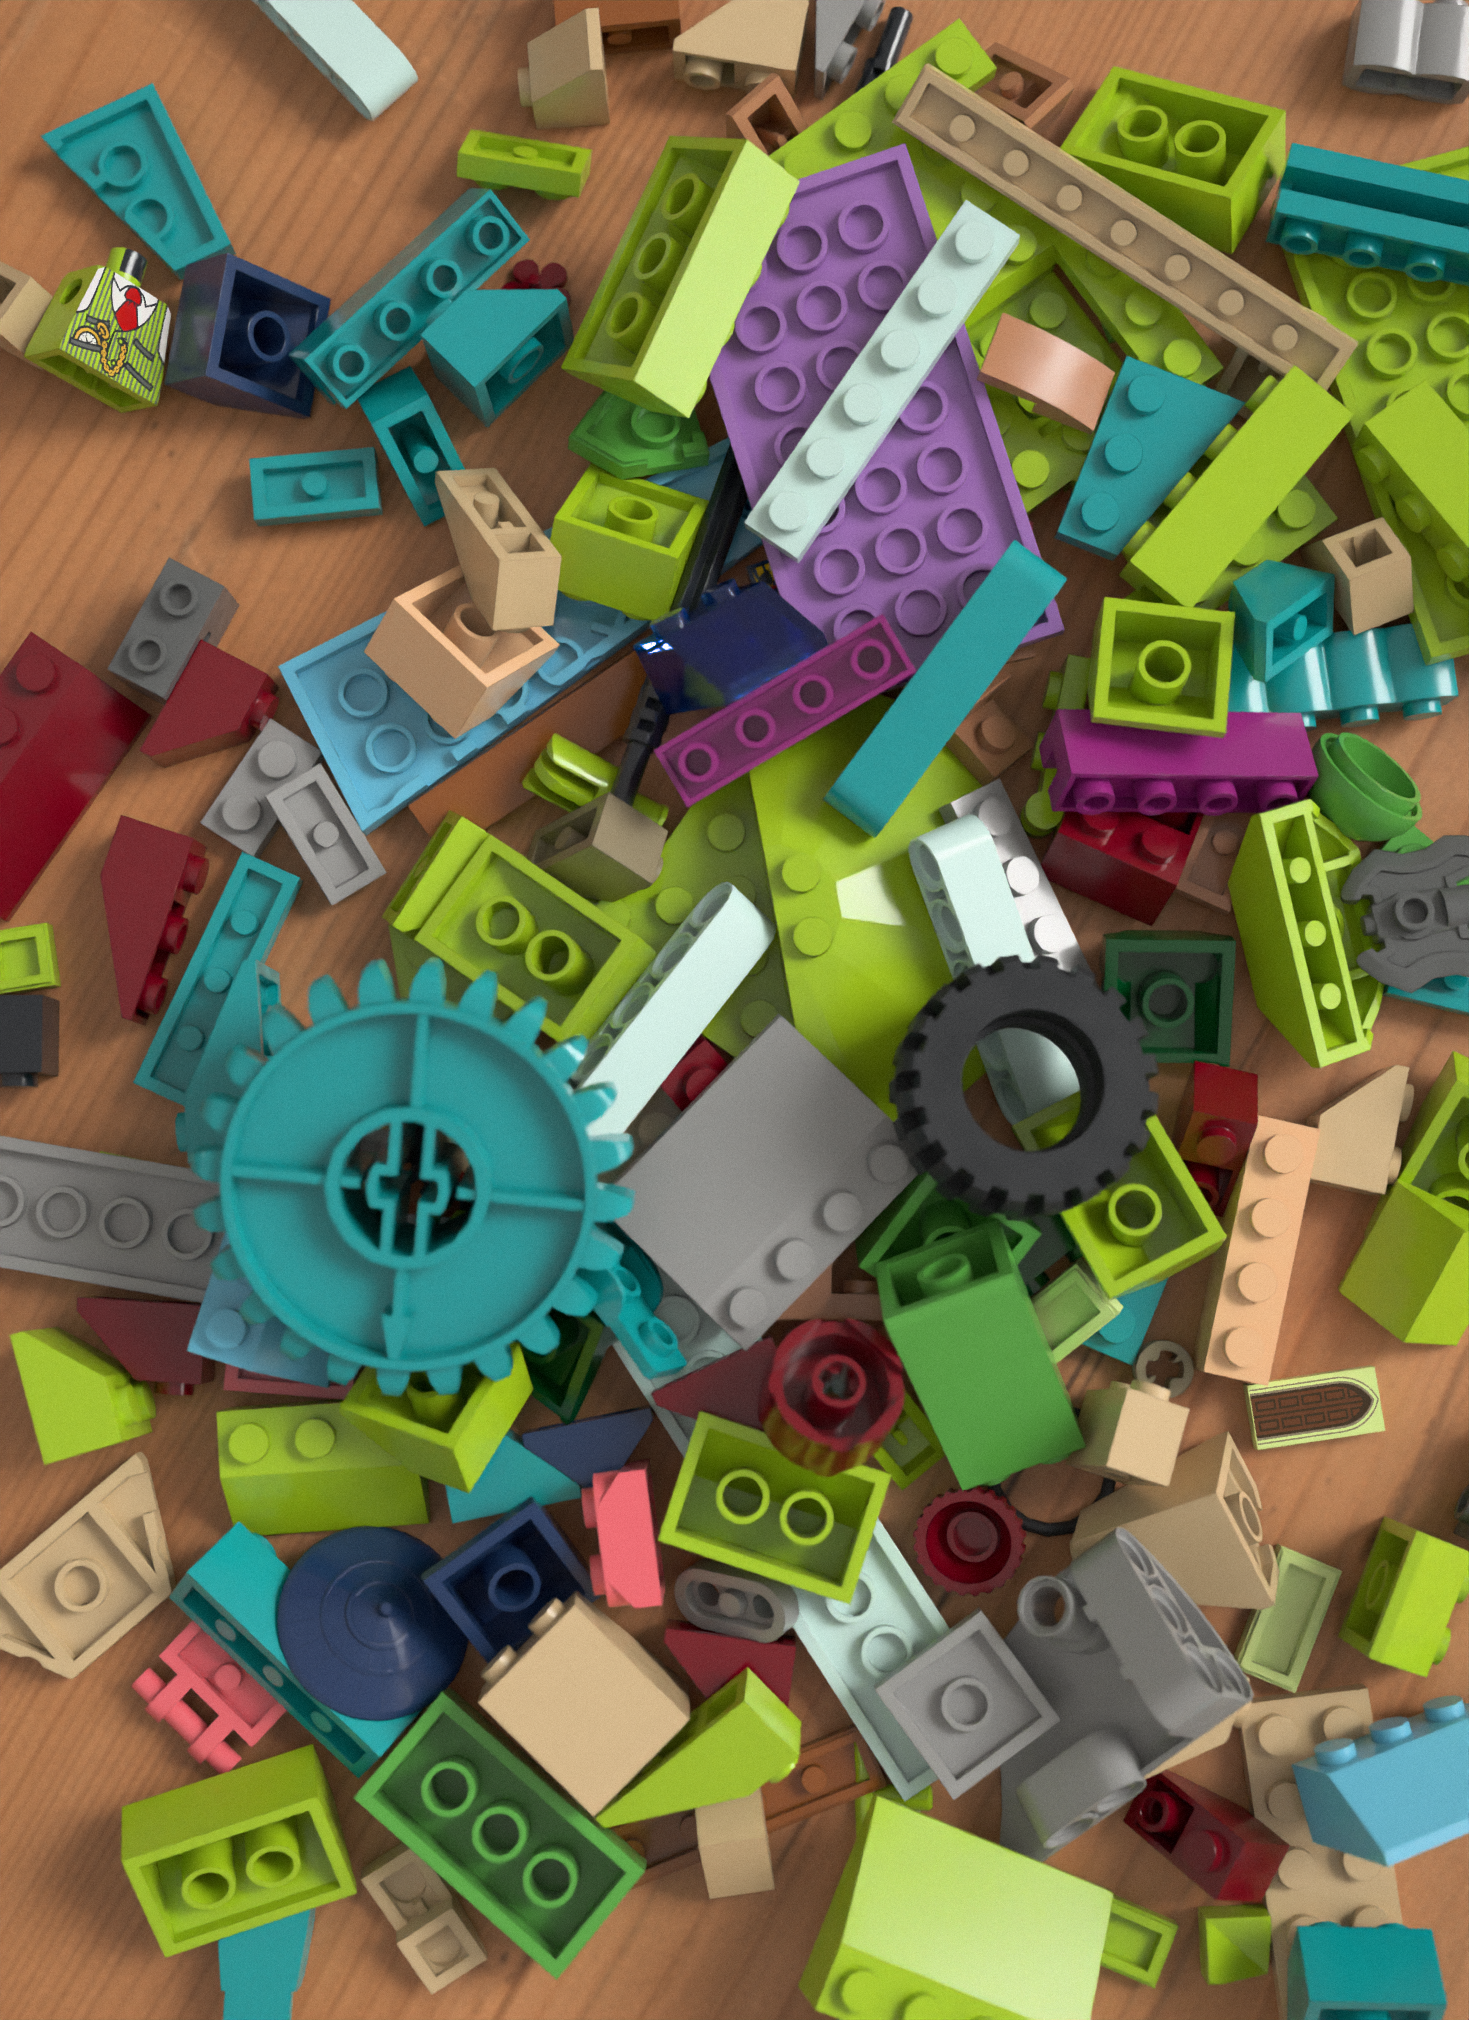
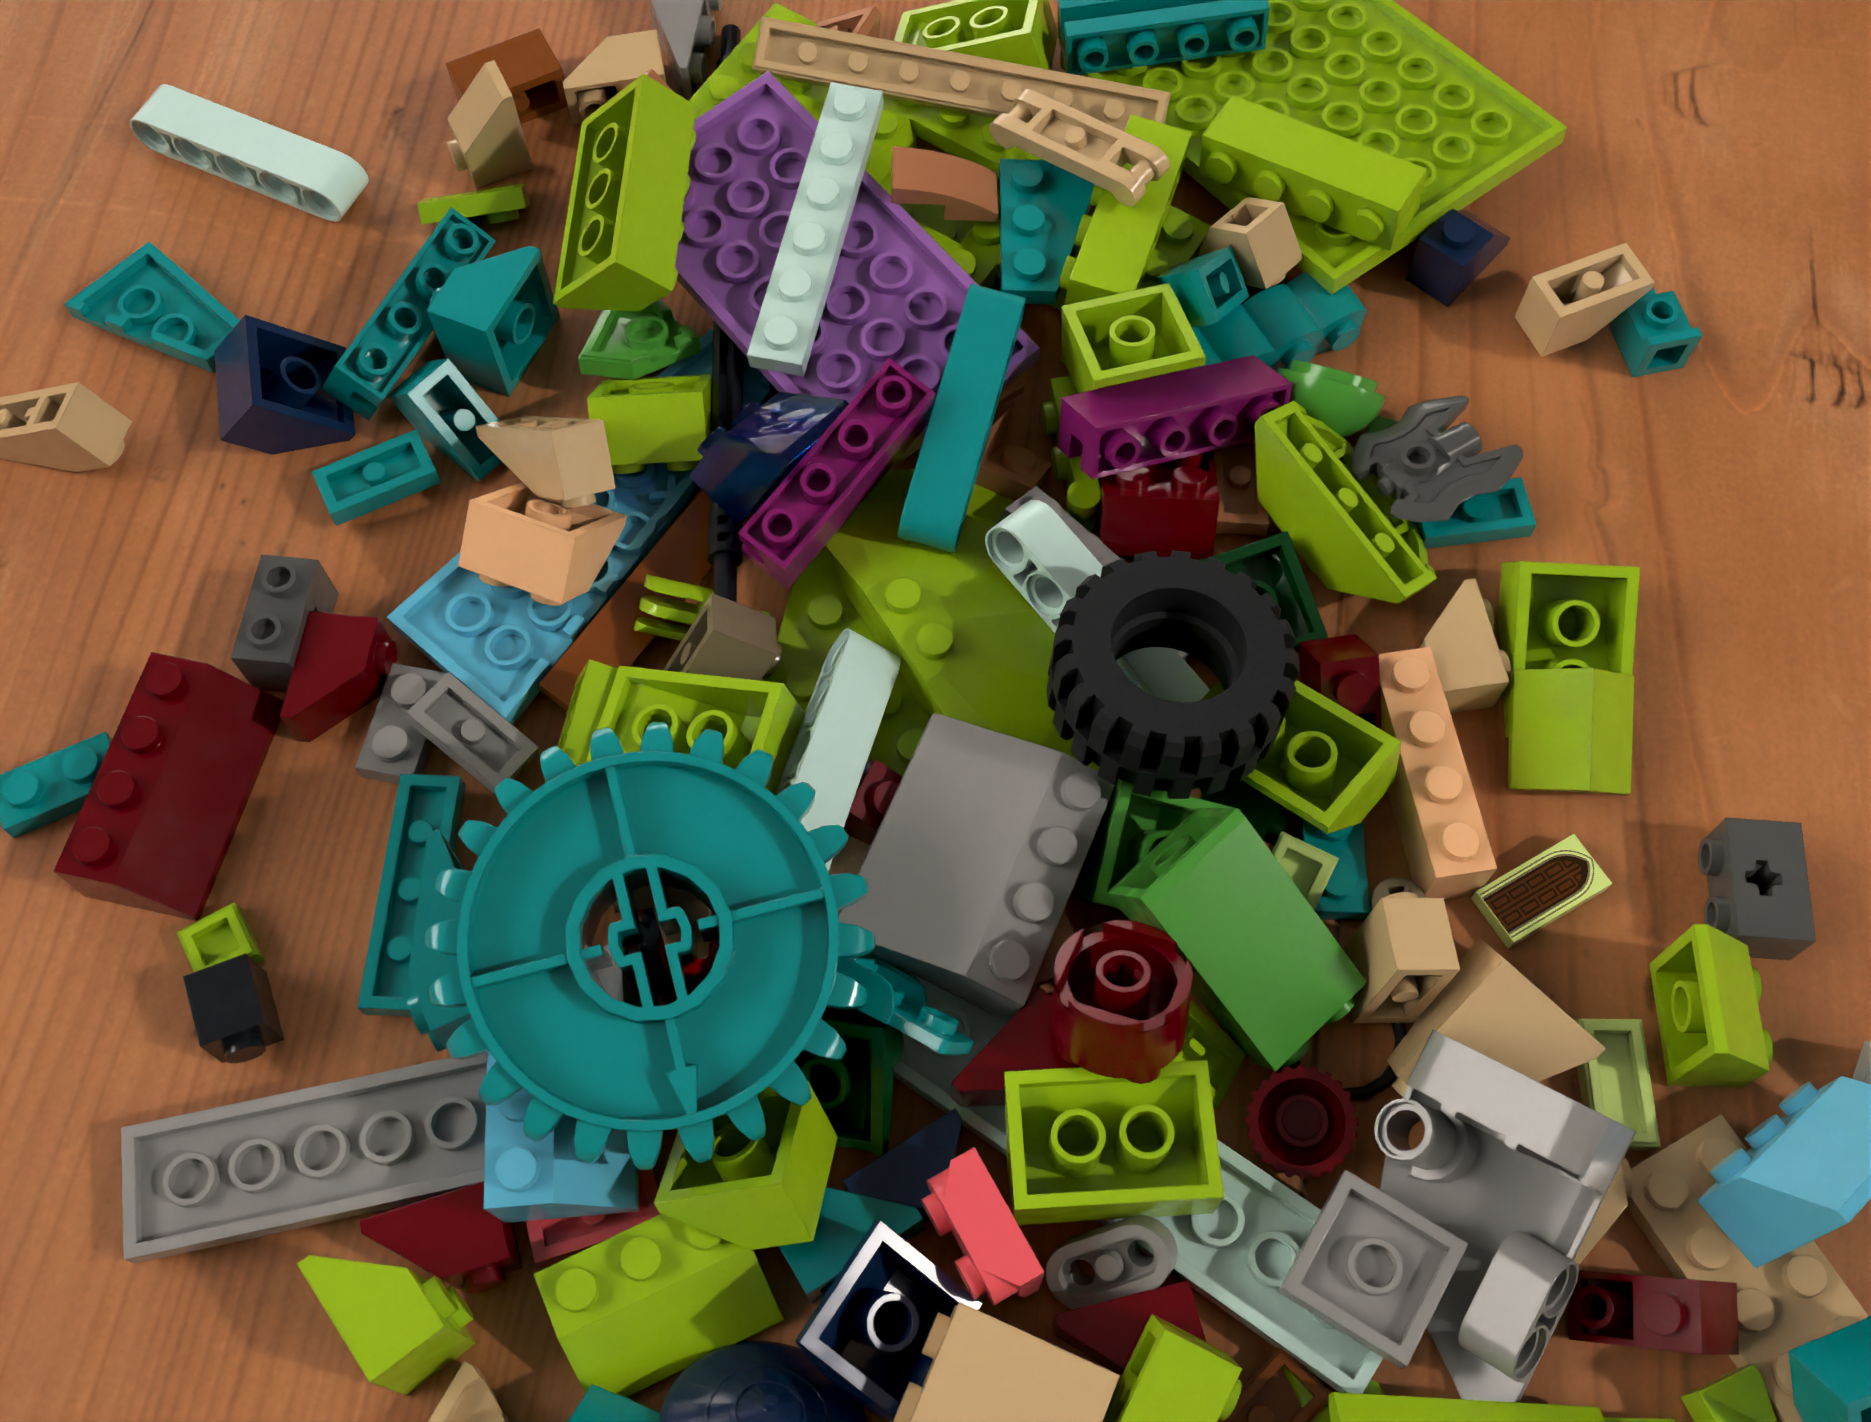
camera: 25 degrees left, 20 degrees down
(106, 333) = (158, 418): torso -> none
(145, 899) = (322, 835): dark red slope -> none
(1214, 390) = (1080, 145): none -> tan plate

